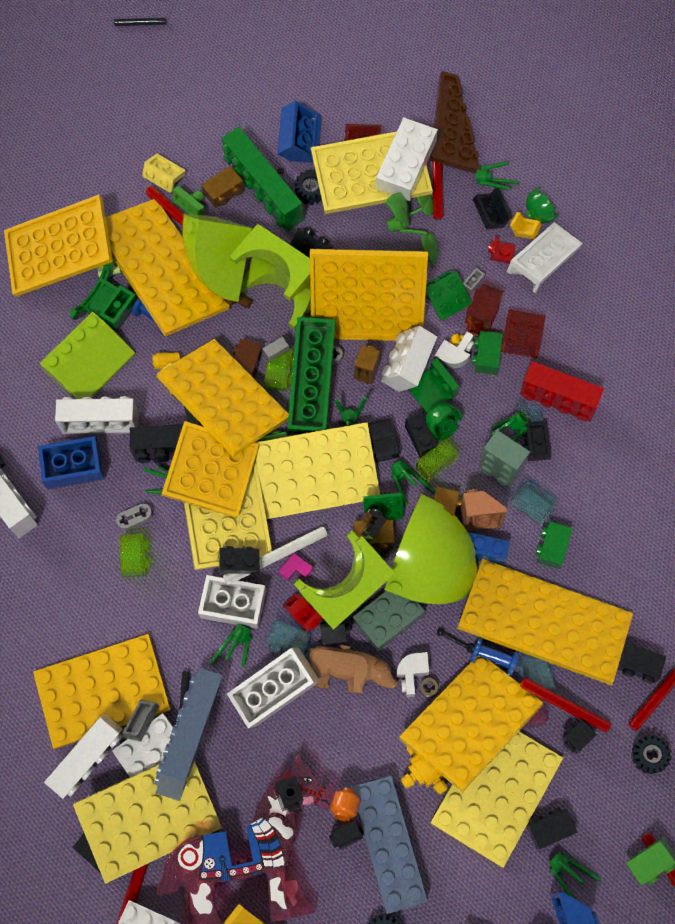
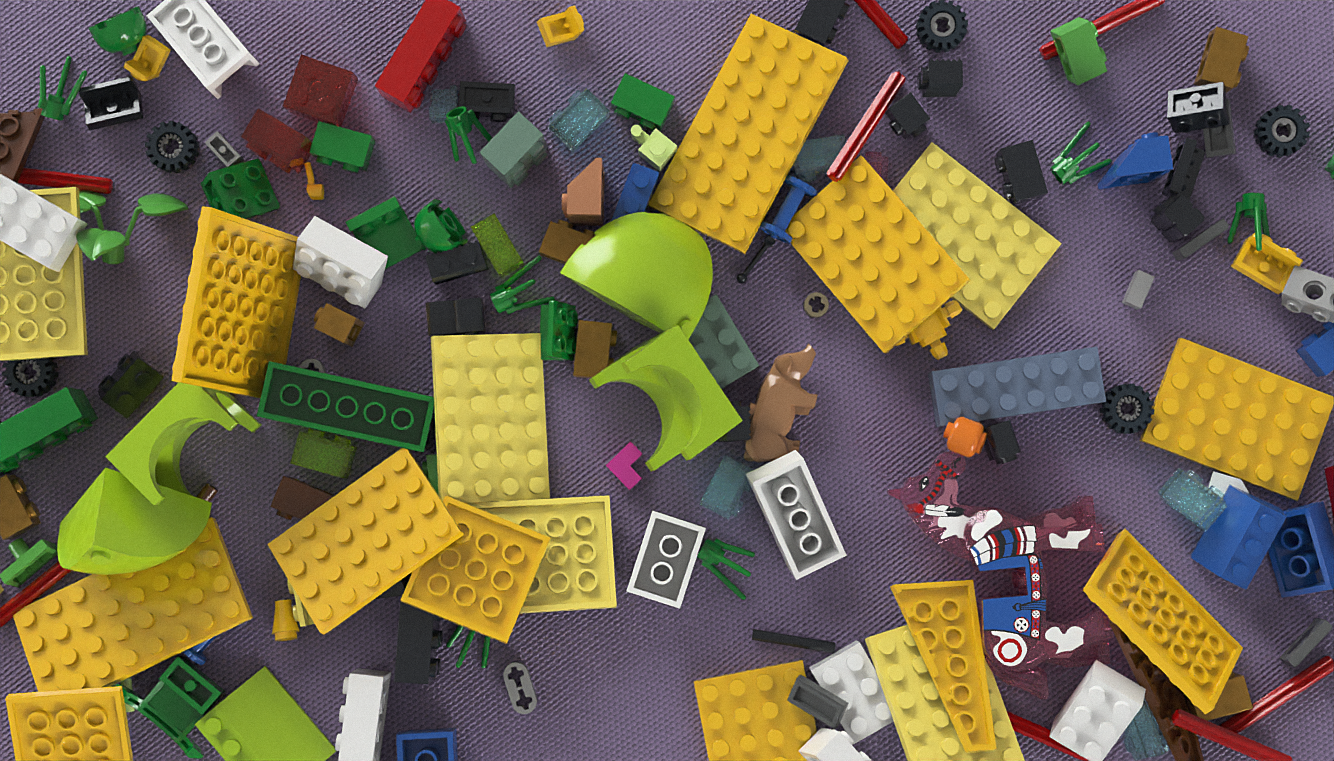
camera: 85 degrees left, 15 degrees up
(133, 555) = (578, 693): clear neon green brick -> none
(187, 734) = (853, 636): sand blue brick -> none
(203, 810) = (950, 642): none -> yellow wing
(239, 560) = (615, 543): black bracket -> none
(275, 349) = (297, 454): light grey piece -> none
(282, 552) = (609, 491): white axle -> none
(288, 794) = (945, 509): black brick -> none
(302, 612) = (684, 472): red brick -> none
(349, 416) = (411, 360): green plant -> none
(376, 521) = (594, 346): black bracket -> none
(410, 667) = (786, 325): white brick -> none
(455, 356) = (341, 198): white brick -> none
(475, 243) = (162, 137): none -> black bush
(501, 251) = (181, 101): red bracket -> none
(523, 556) = (655, 148): none -> yellowish green brick
(597, 482) = (561, 27): none -> yellow bracket
(611, 755) = (941, 78): none -> black brick

